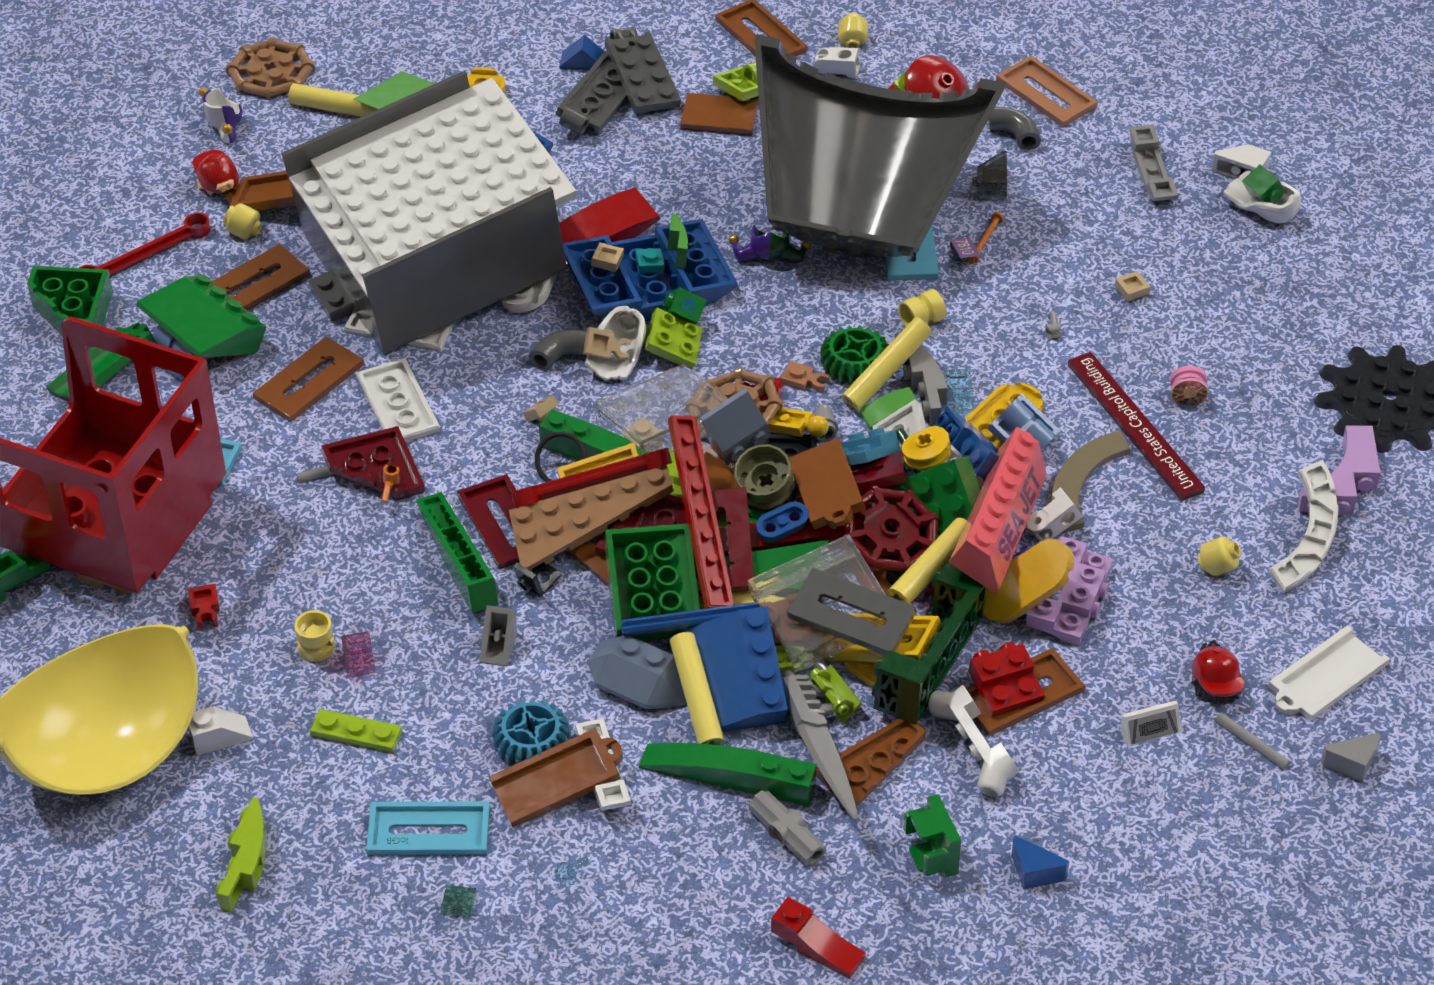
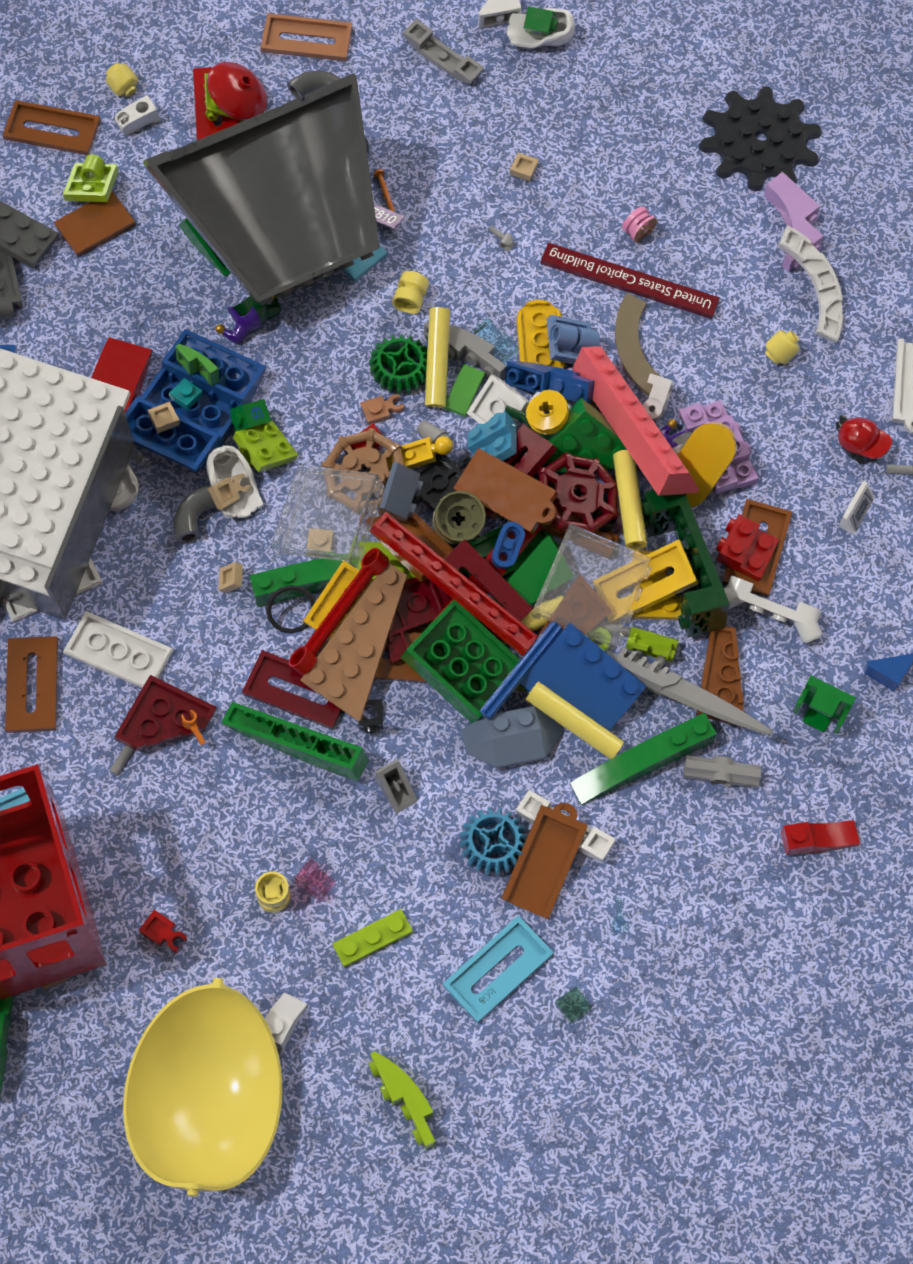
camera: 45 degrees left, 20 degrees up
(878, 638) = (600, 603): dark grey piece -> none

